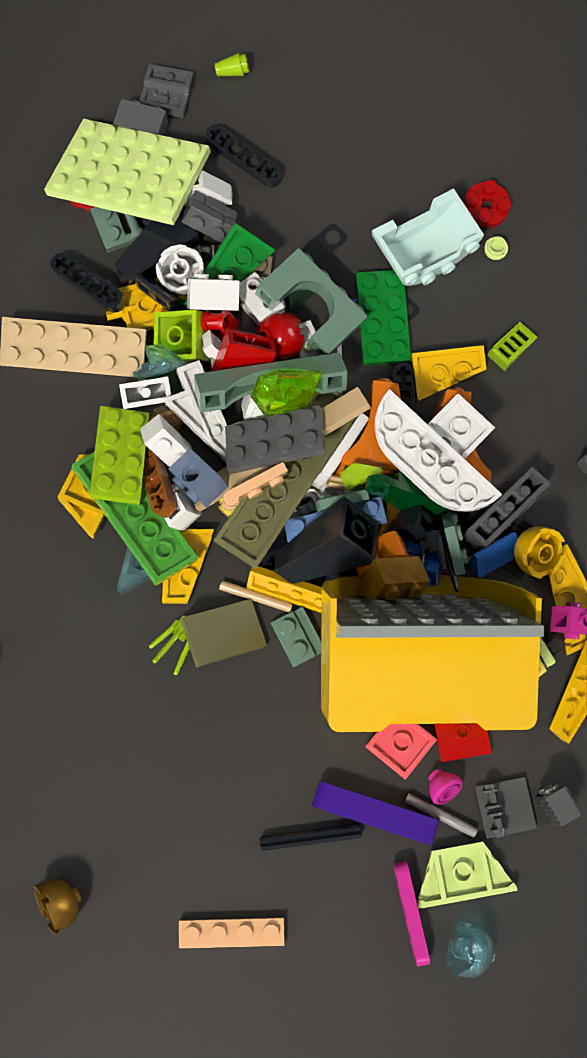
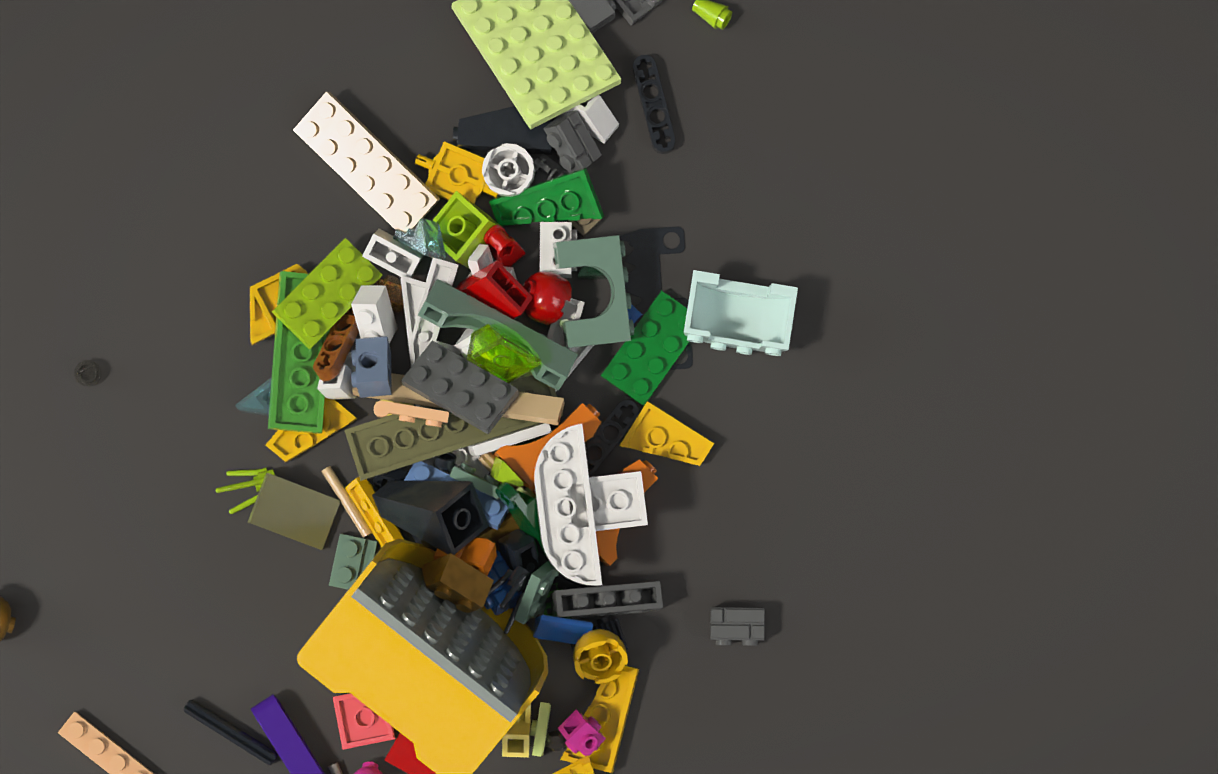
camera: 40 degrees right, 5 degrees up
(89, 280) = (422, 116): black beam -> none
(112, 230) = (483, 85): sand green plate -> none
(157, 292) = (473, 166): black slope -> none
(213, 293) = (516, 216): white brick -> none
(492, 193) = (839, 330): red plate -> none
(496, 248) = (803, 365): yellowish green plate -> none
(503, 361) = (721, 468): lime slope -> none

